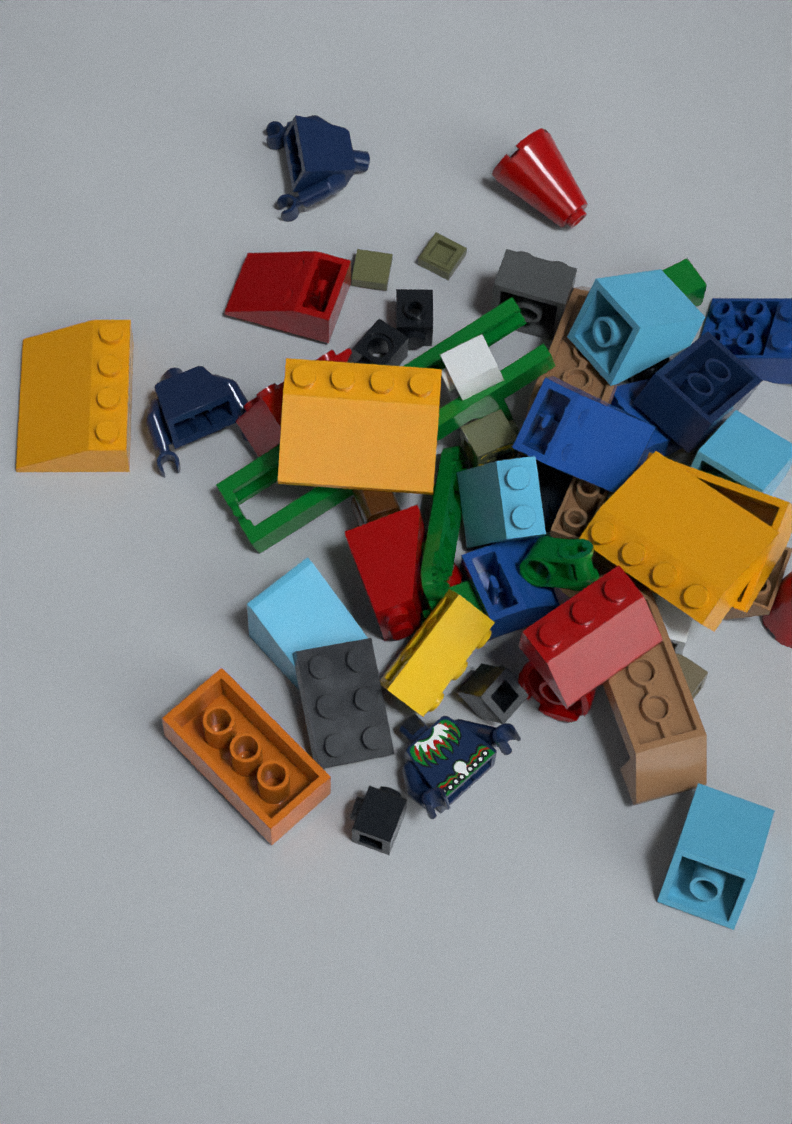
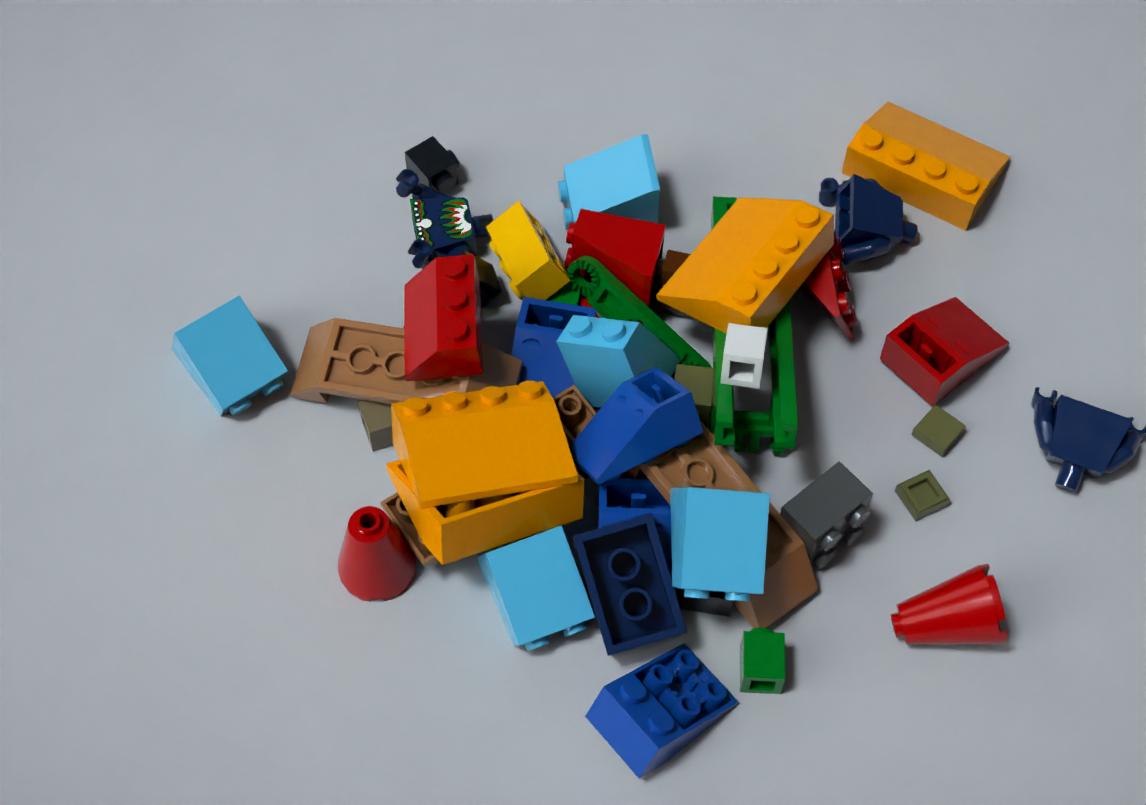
camera: 125 degrees right, 5 degrees down
(247, 756) = (539, 109): orange brick -> none
(343, 703) = (541, 179): black plate -> none
(384, 340) = (842, 394): black brick -> none
(415, 316) = (862, 426): black brick -> none
(558, 563) = (533, 363): green piece -> none

